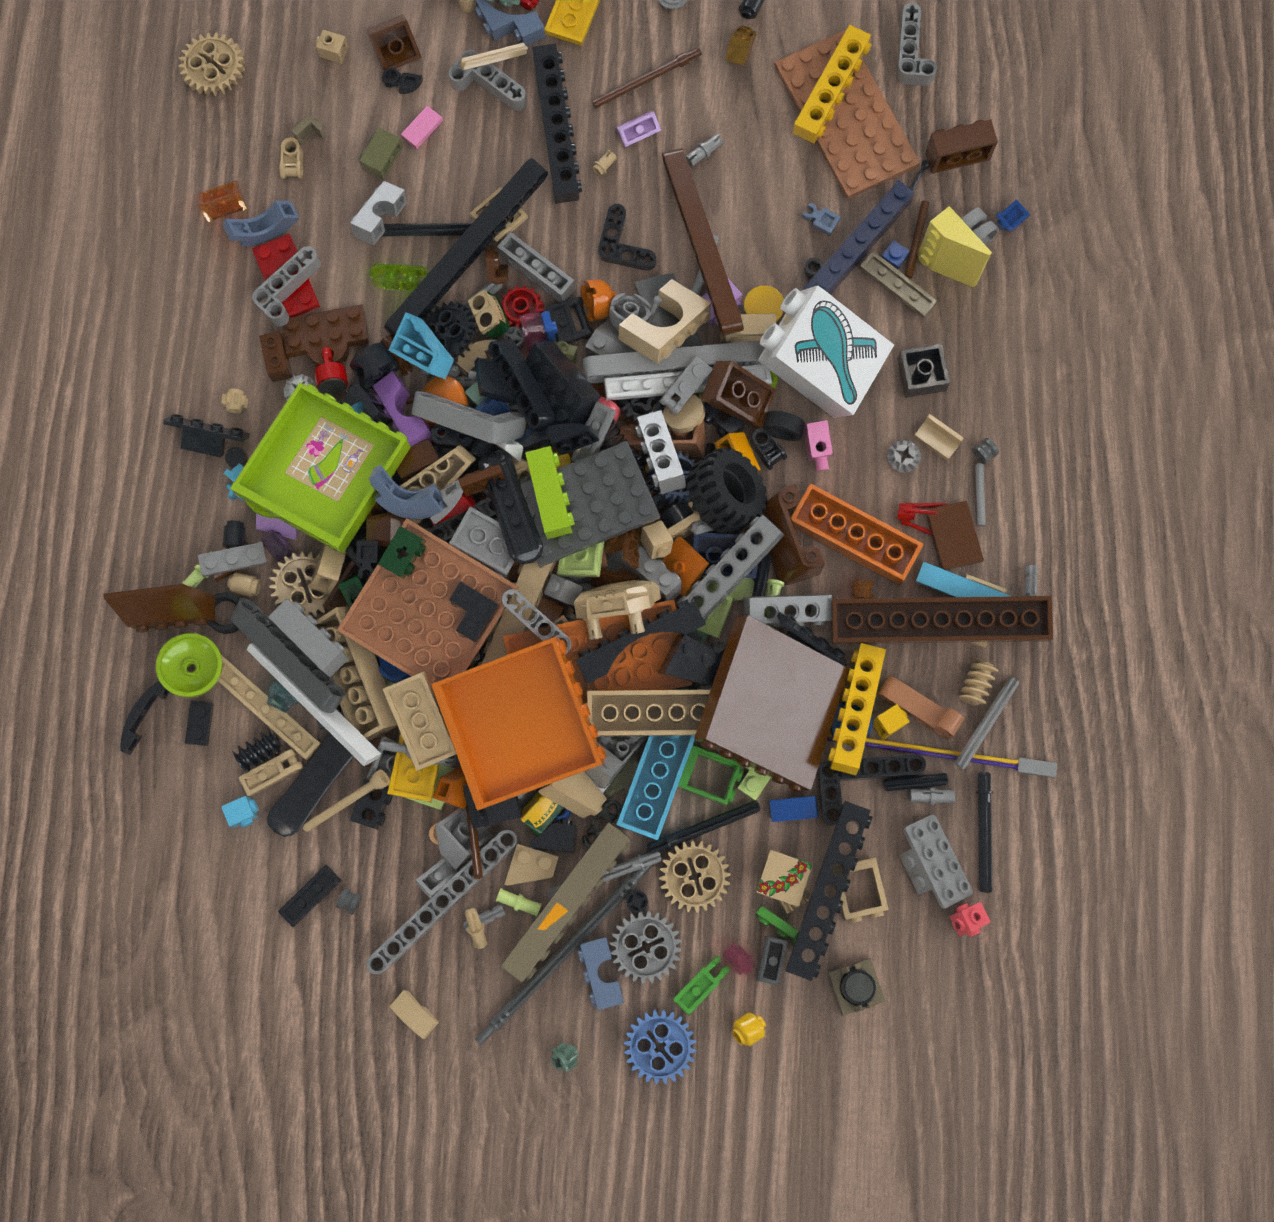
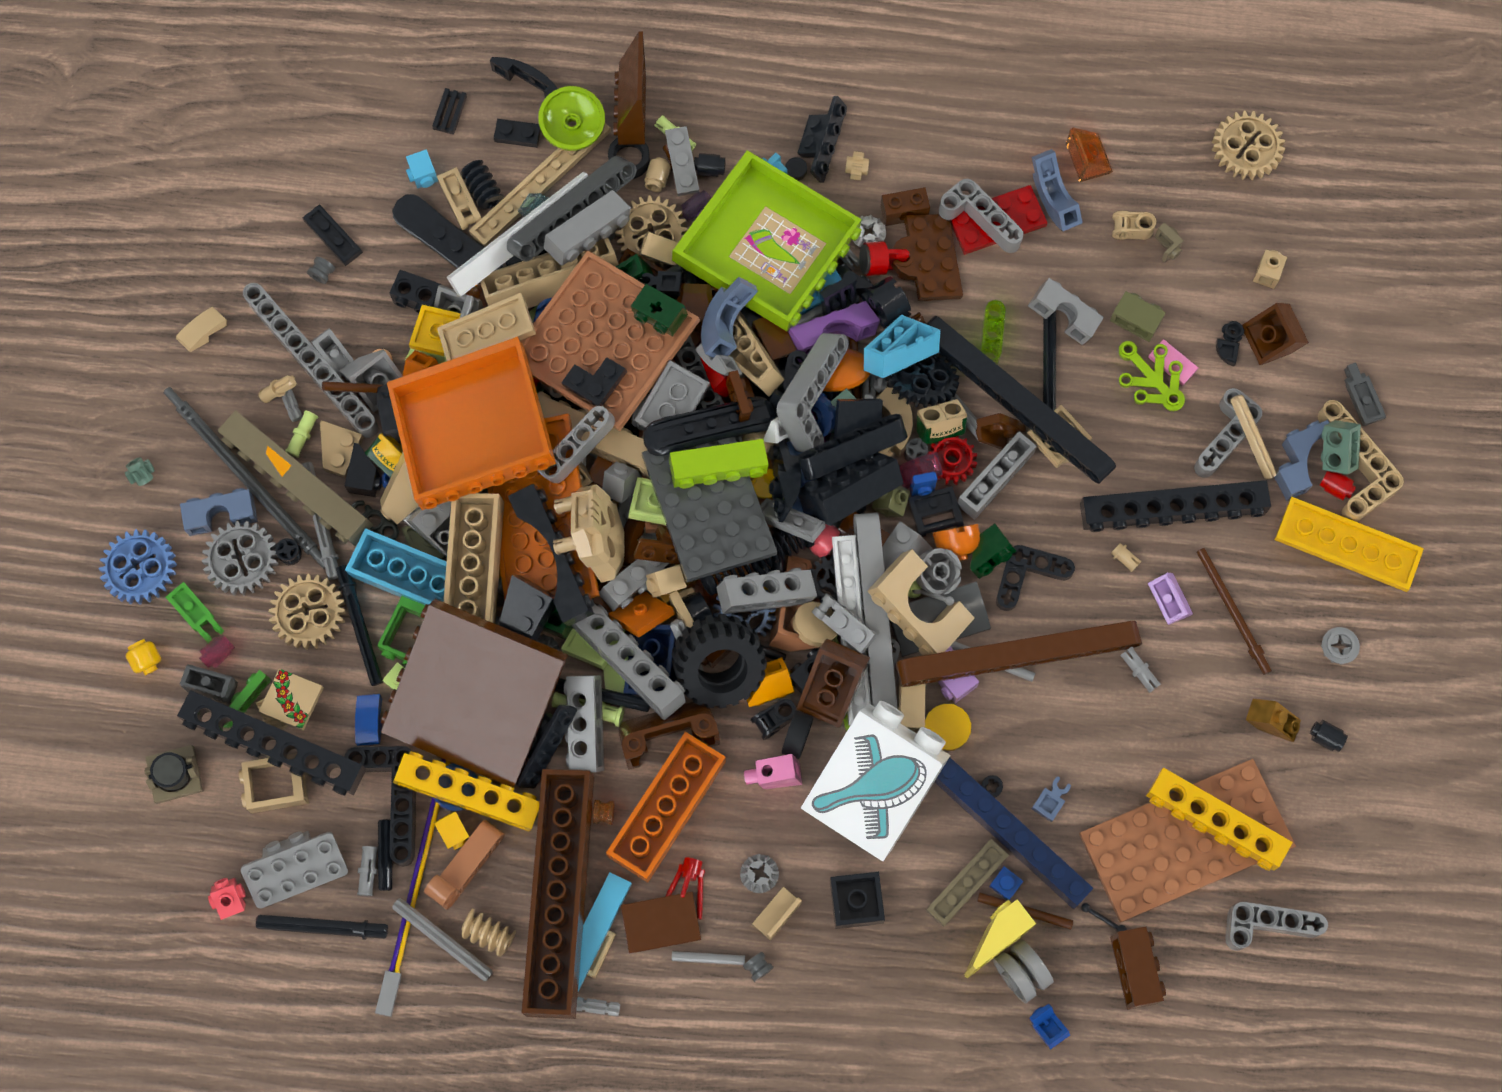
camera: 90 degrees right, 5 degrees down
(157, 788) = (454, 95): none -> black tile
(378, 781) = (433, 293): tan piece -> none
(438, 141) = (1154, 378): none -> lime plant
(603, 268) = (991, 551): none -> dark green slope

